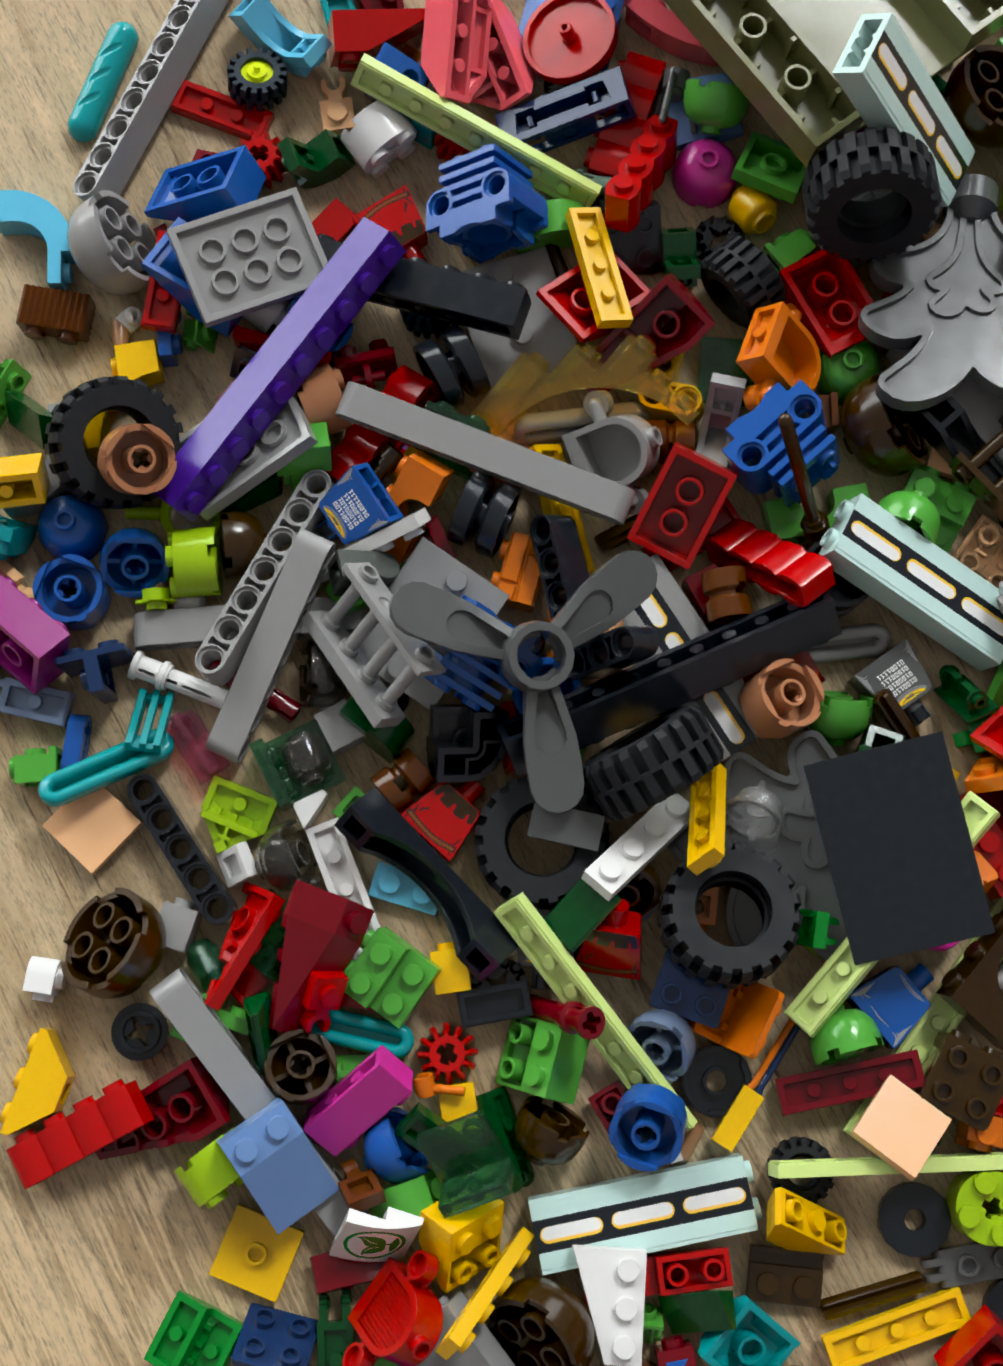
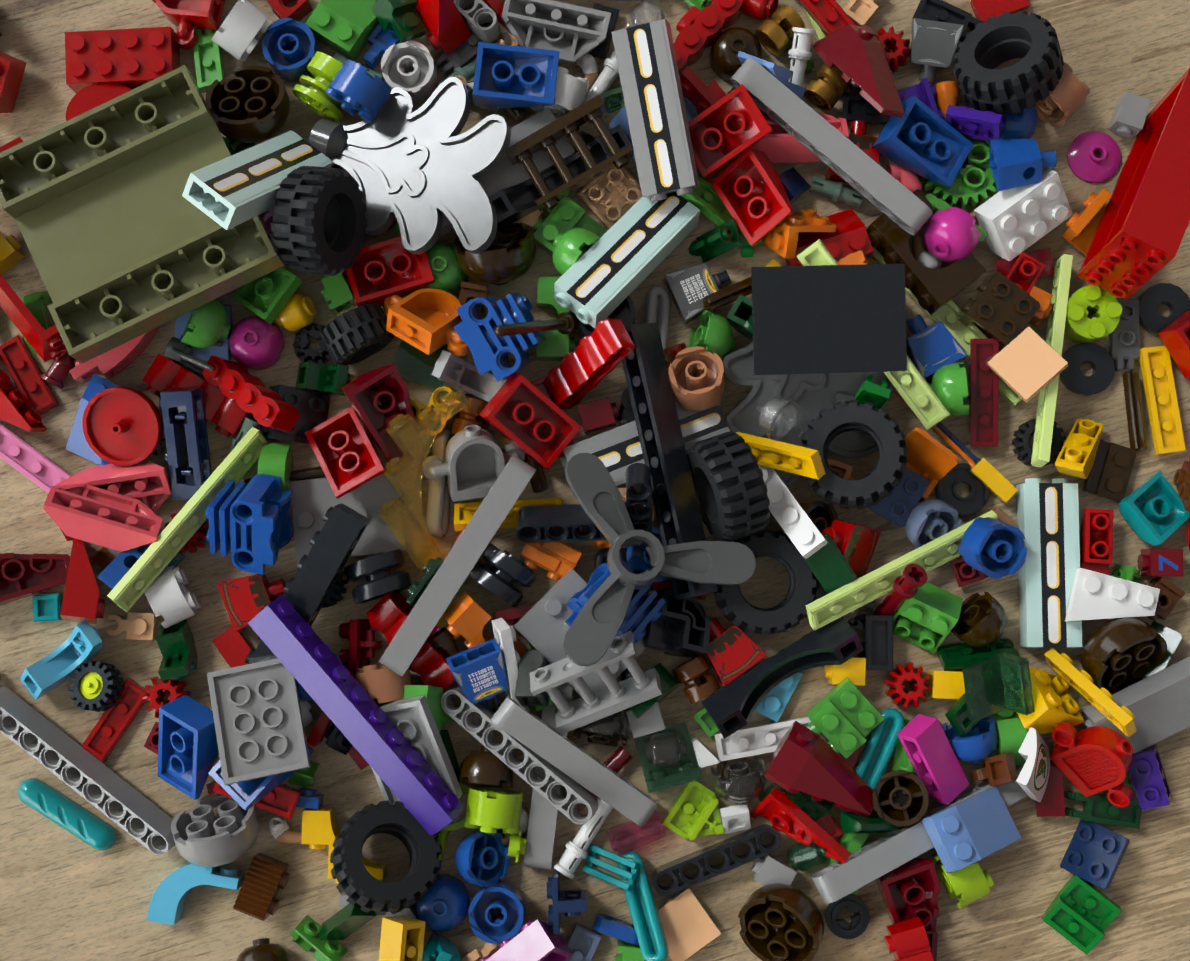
camera: 75 degrees left, 5 degrees up
(156, 452) = (394, 846): nougat brick -> none
(255, 1255) = (1027, 859): yellow plate -> none
(321, 995) = (851, 772): red plate -> none
(426, 1087) = (933, 706): orange hand -> none
(567, 828) = (767, 555): dark grey tile -> none
(599, 267) = (325, 444): yellow plate -> none
(699, 1311) = (1127, 537): dark green slope -> none
(726, 592) = (607, 402): reddish brown wheel -> none

